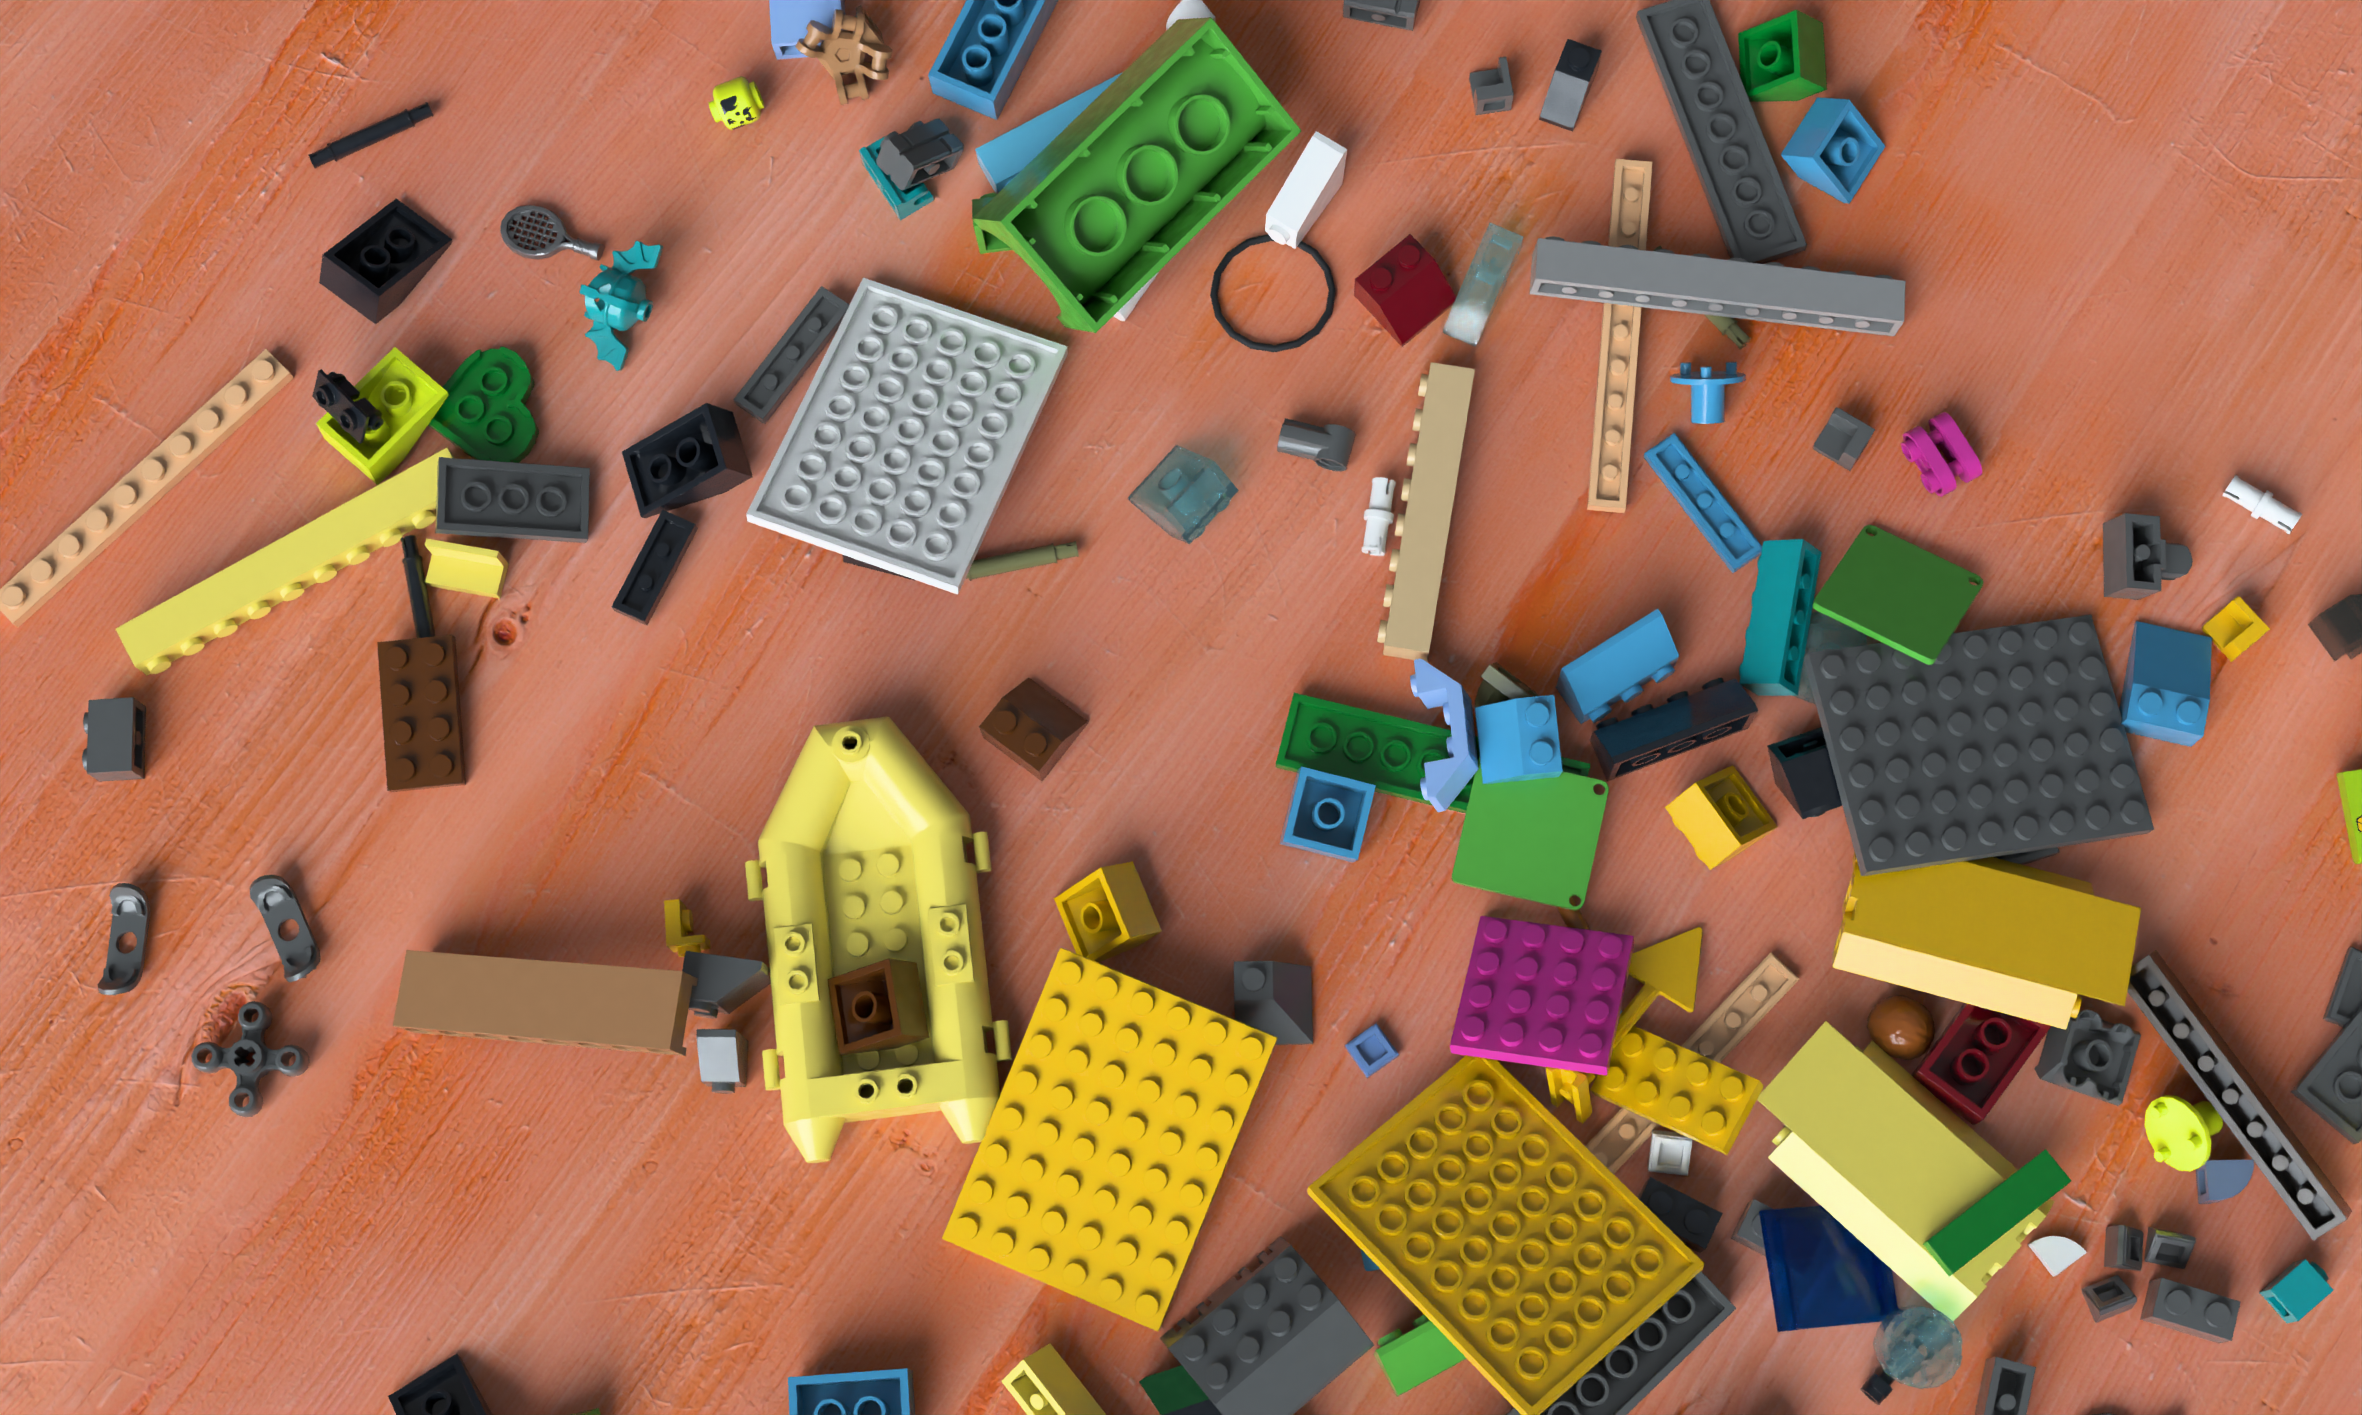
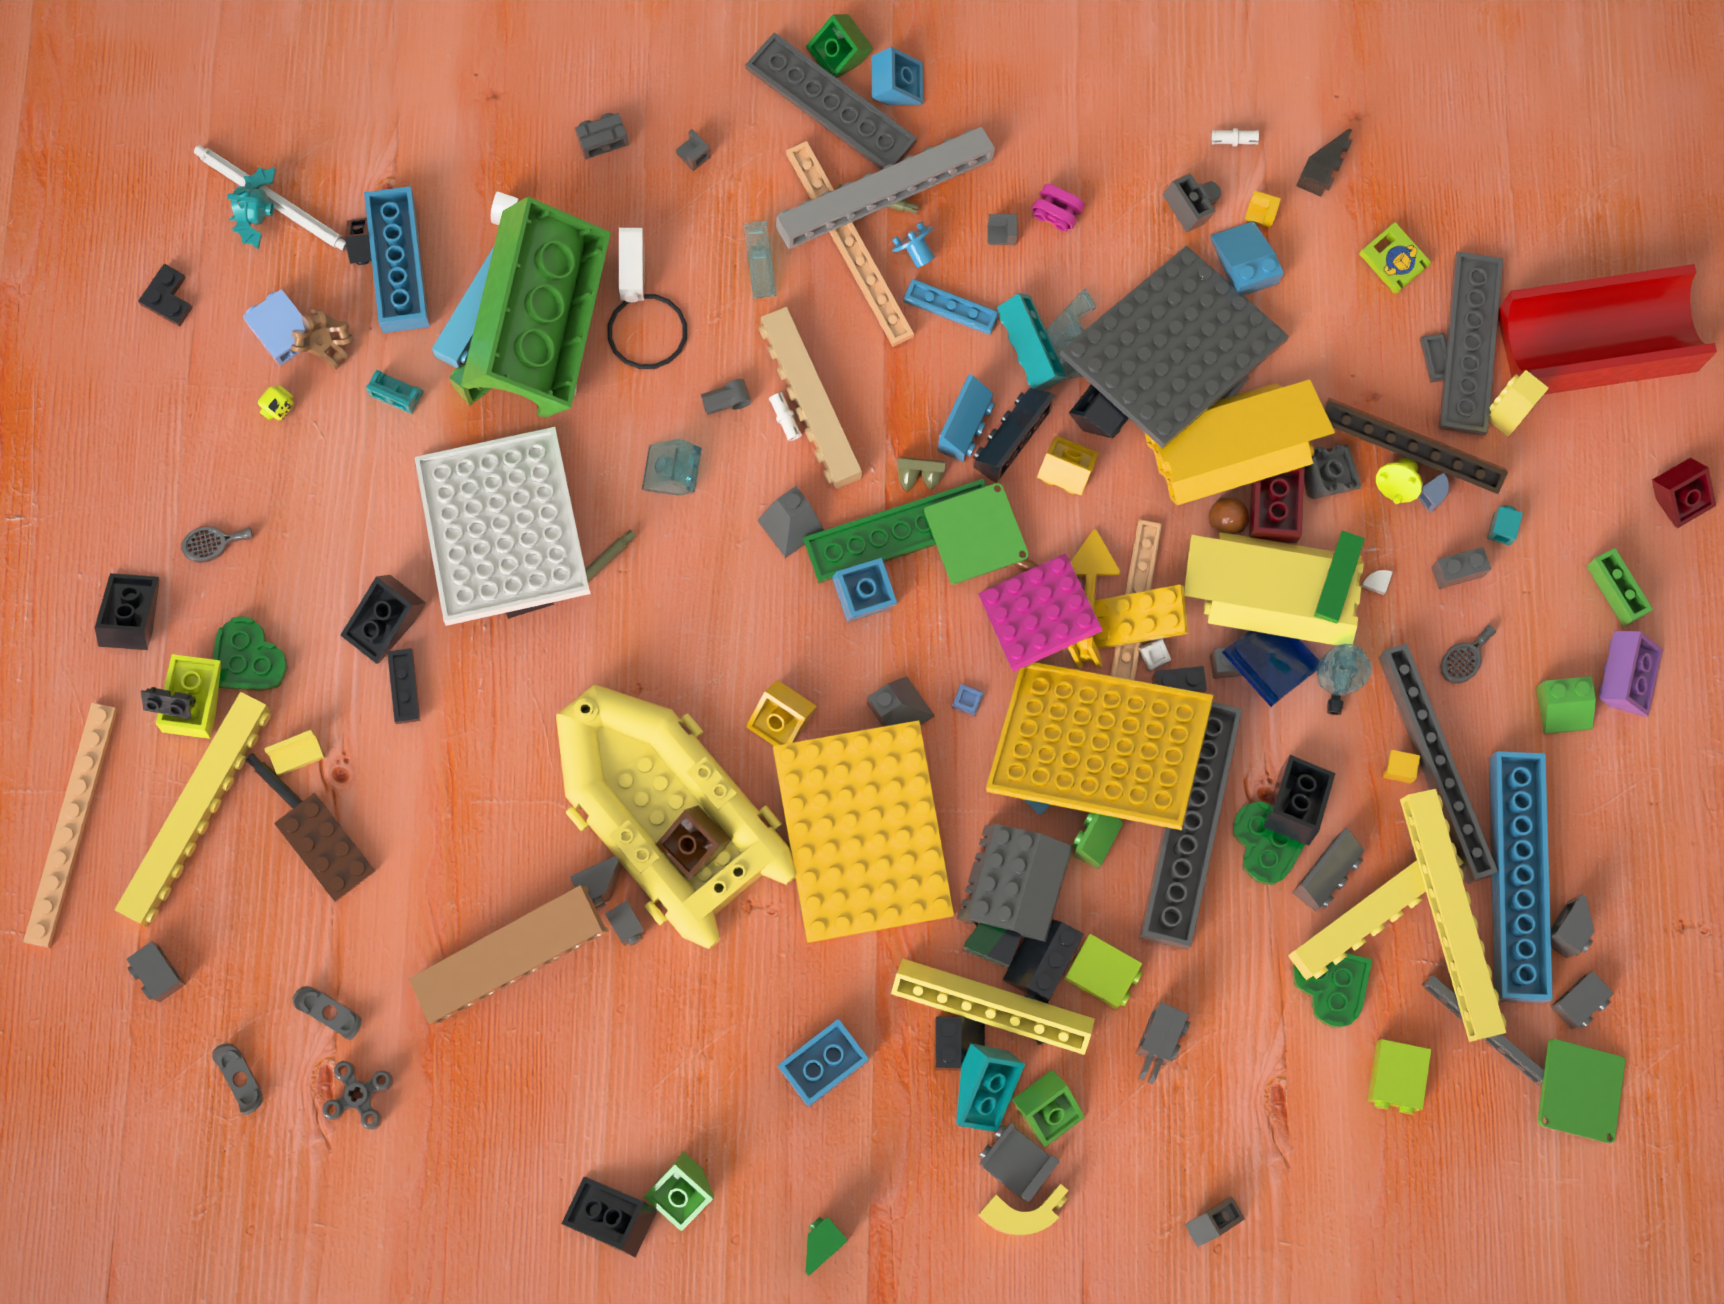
camera: 45 degrees left, 0 degrees up
(371, 135) = (69, 546): black piece -> none
(512, 500) = (298, 697): dark grey plate -> none
(620, 300) = (284, 551): teal helmet -> none
(677, 925) = (550, 868): yellow bracket -> none
(792, 355) = (402, 523): dark grey plate -> none
(919, 153) = (401, 369): dark grey brick -> none
(1032, 727) = (674, 643): reddish brown slope -> none
(1291, 660) = (789, 521): none -> dark grey slope
(1404, 290) = (719, 287): dark red slope -> none
(1448, 776) = (916, 529): light blue slope -> none
(1519, 740) = (940, 487): dark azure slope -> none
(1570, 85) = (735, 124): slope -> none
(1898, 594) = (1084, 292): bright green piece -> none
(2108, 1298) = (1417, 588): flat silver slope -> none
(2123, 1247) = (1408, 558): flat silver slope -> none
(2168, 1248) = (1430, 544): flat silver slope -> none

